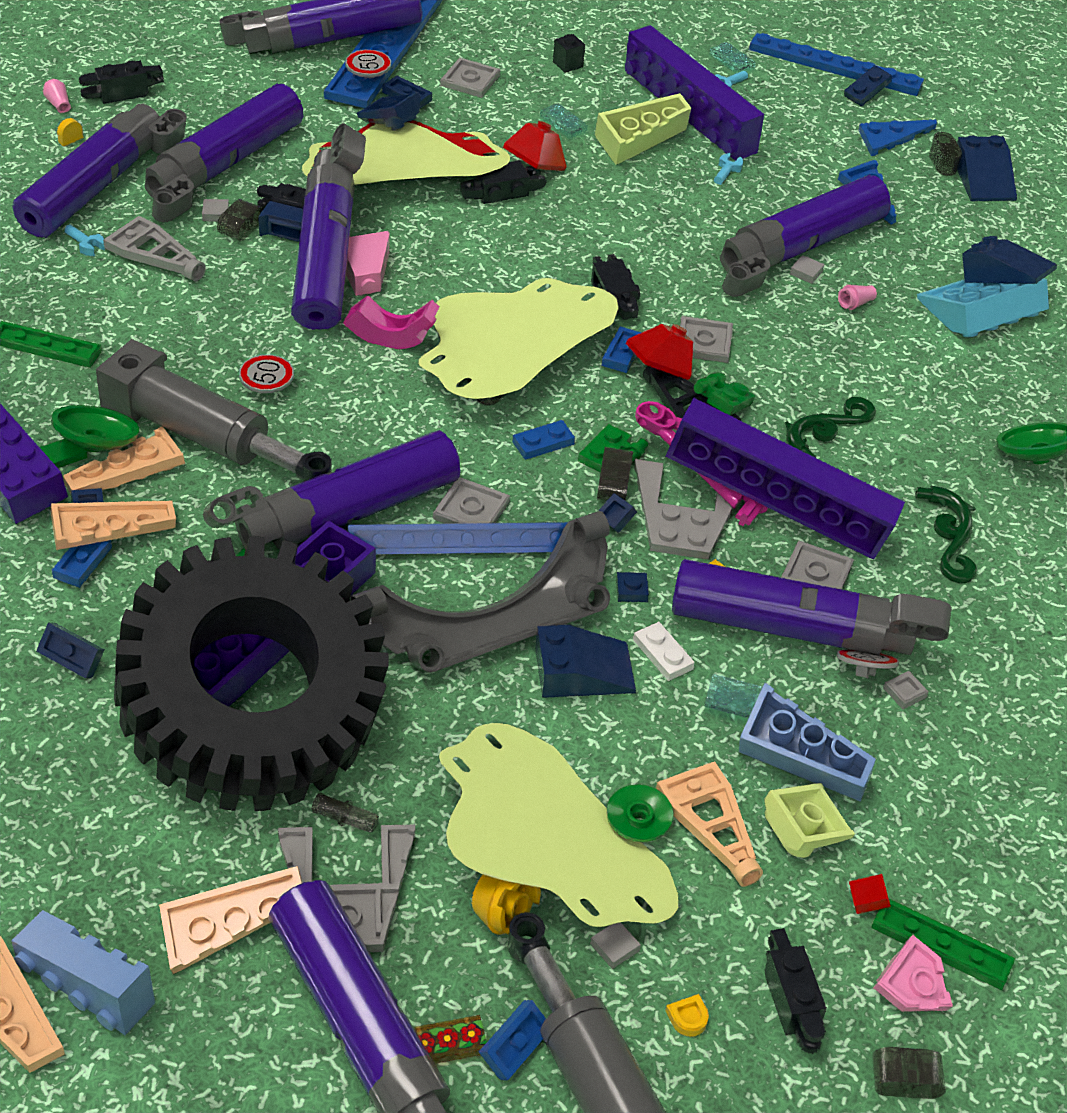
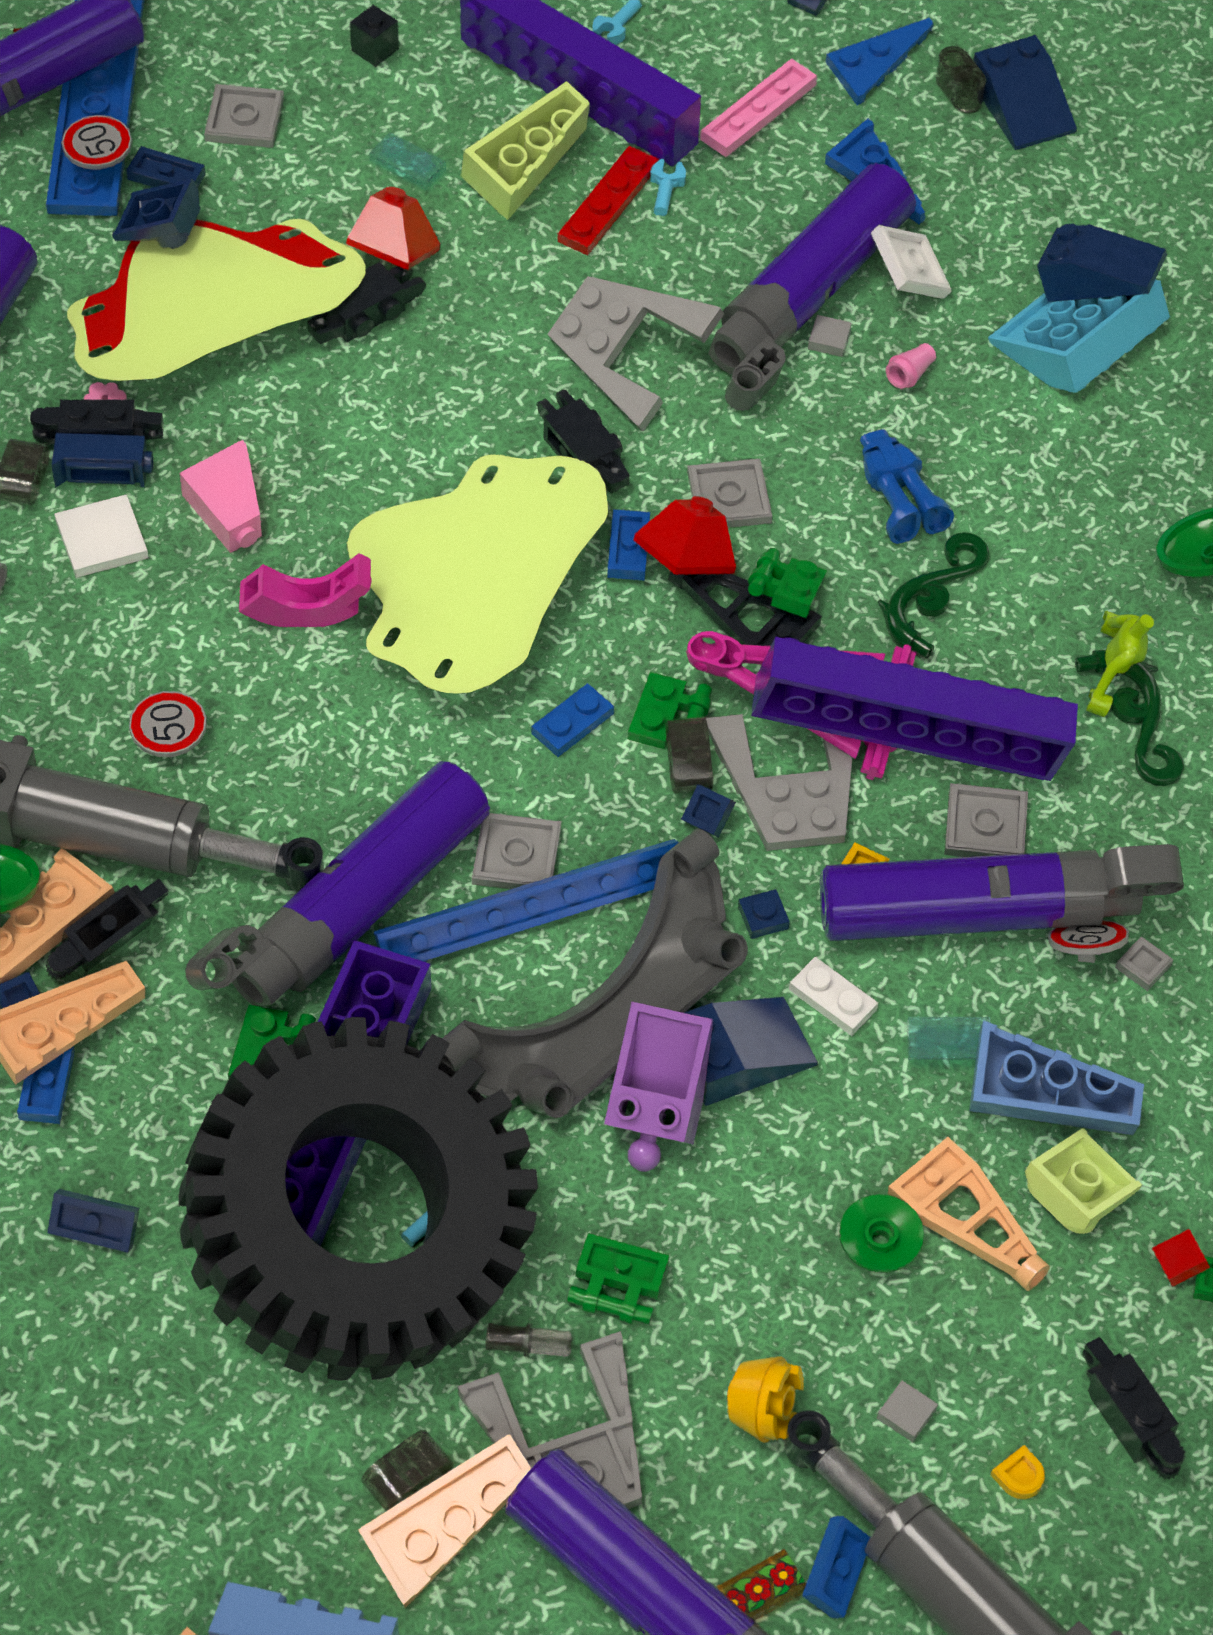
camera: 15 degrees left, 10 degrees up
(165, 476) = (105, 929): none -> black hinge
(213, 871) = (406, 1469): none -> clear smoke beam
(272, 266) = (101, 536): none -> white tile
(326, 231) = (166, 471): dark purple piece -> none
(430, 781) = (620, 1267): none -> green plate
(513, 653) = (659, 1070): none -> medium lavender slope
(540, 826) = (777, 1296): yellowish green piece -> none
(657, 222) = (601, 323): none -> light grey wing
(684, 168) = (607, 201): none -> red plate
(803, 140) = (758, 107): none -> bright pink plate
(825, 348) = (893, 466): none -> blue piece
(876, 237) = (911, 262): none -> white tile
(956, 483) = (1125, 649): none -> lime piece

